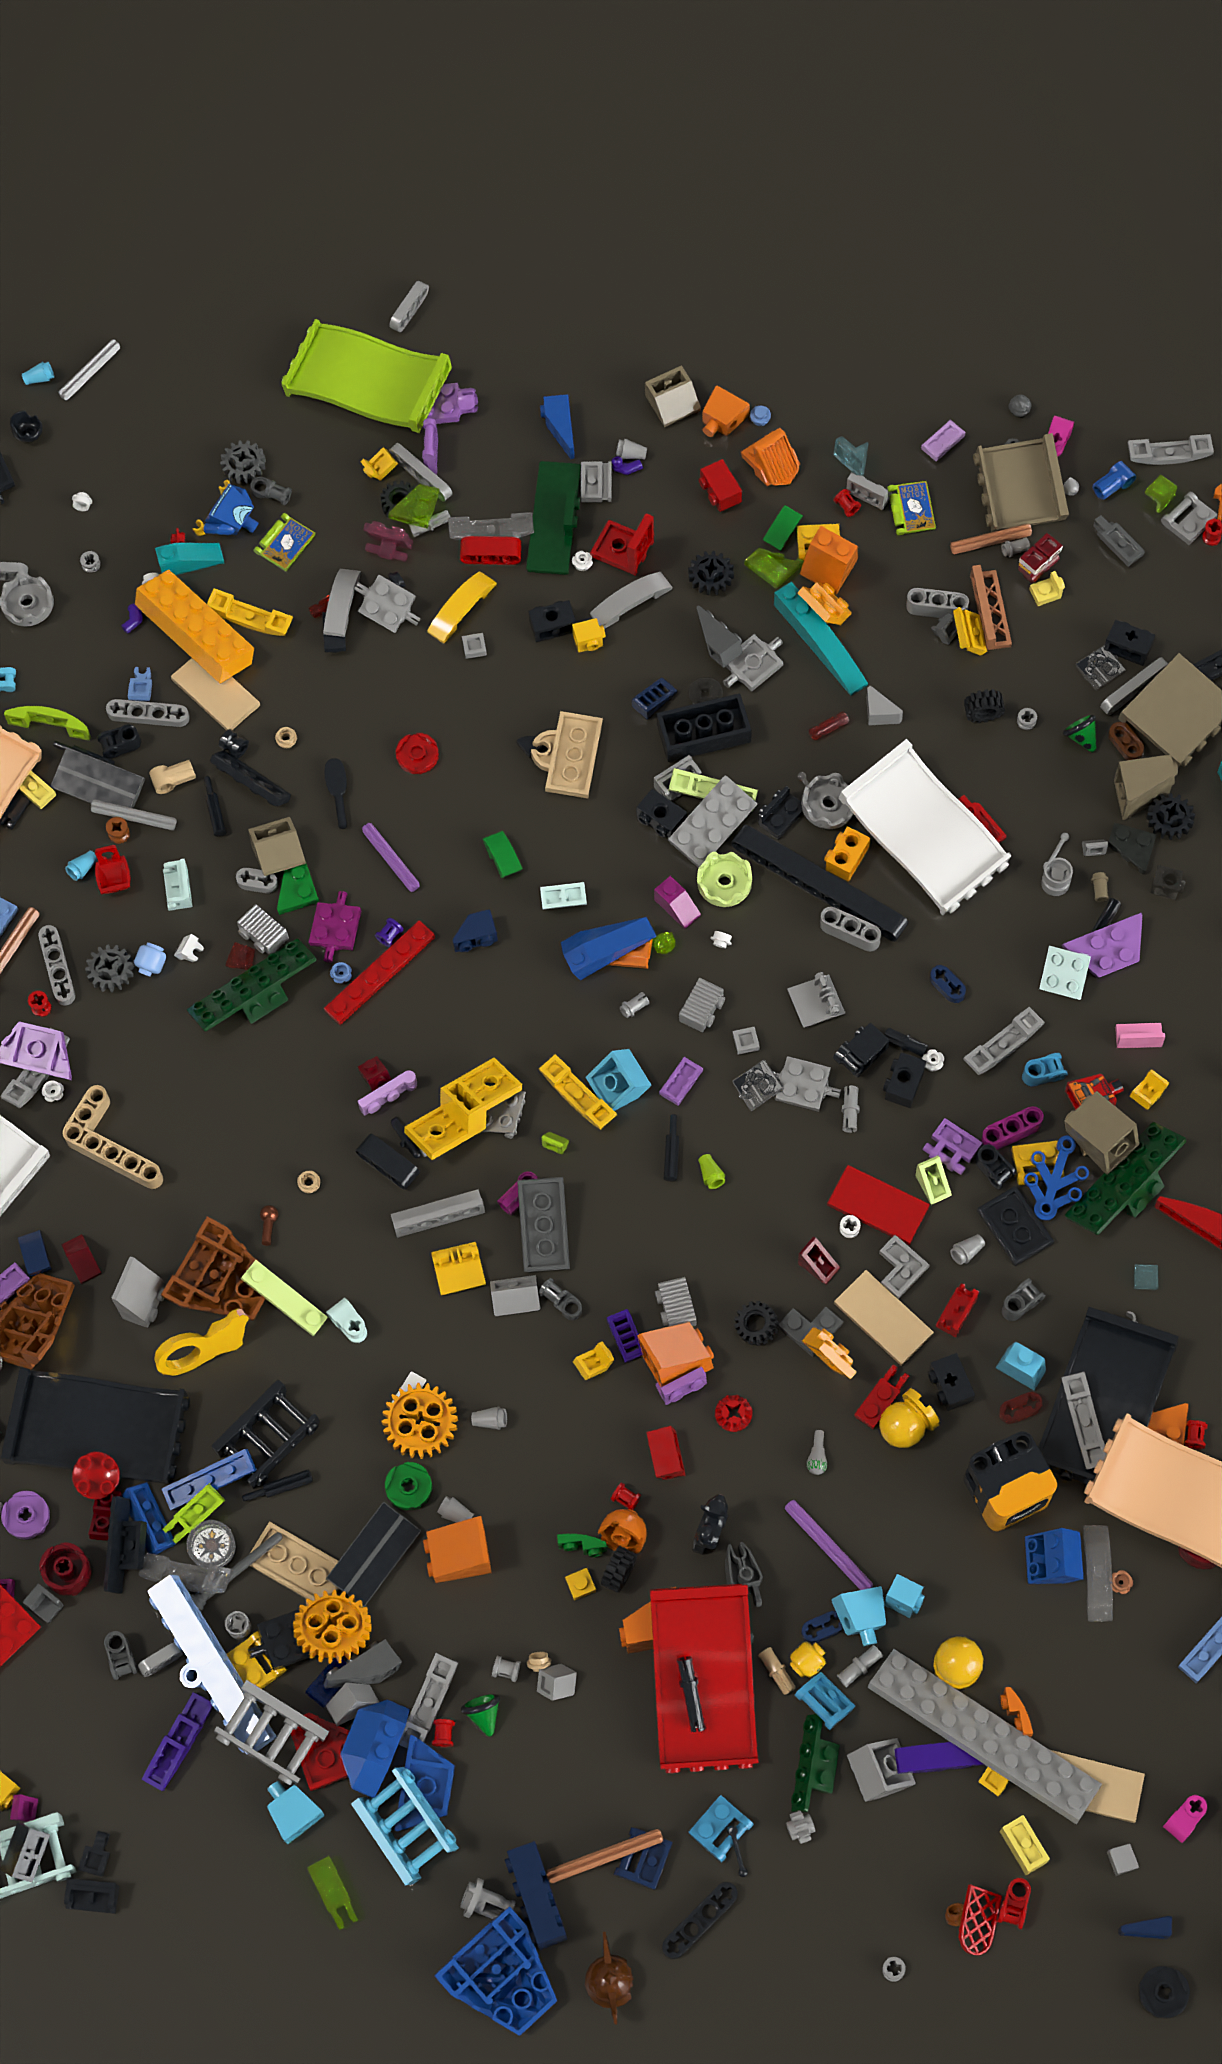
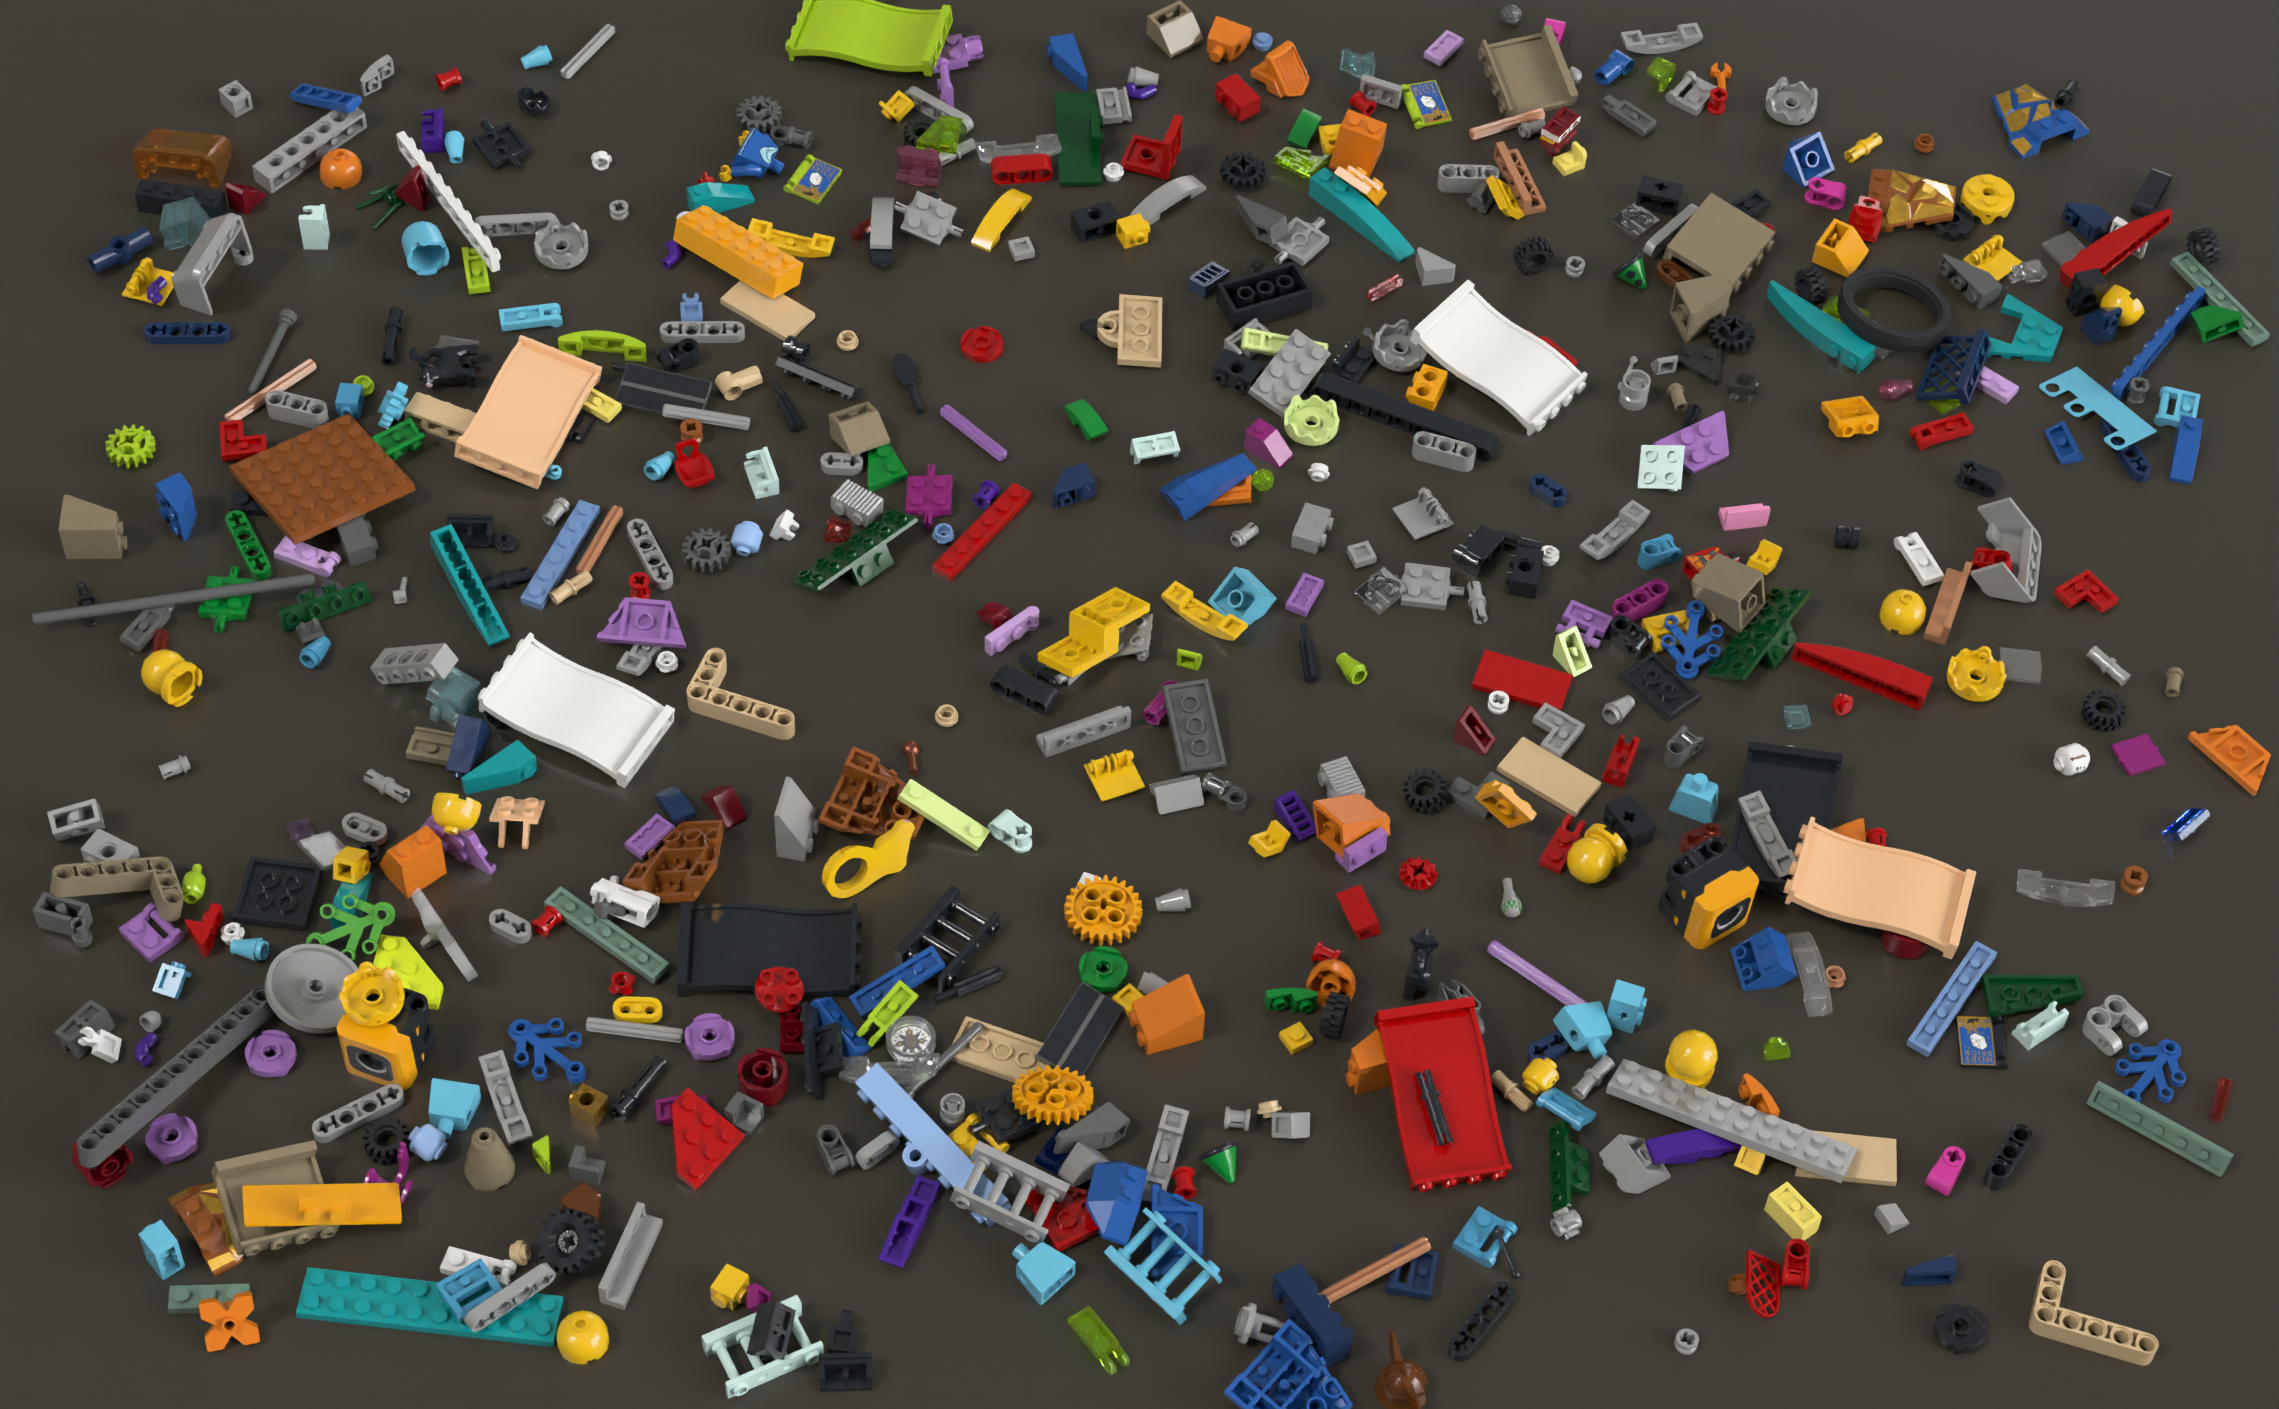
camera: 15 degrees left, 15 degrees down
(428, 1520) = (1126, 997): none -> yellow tile
(1047, 1655) = (1776, 1049): none -> clear neon green plate
(1194, 1269) = (1842, 704): none -> red plate

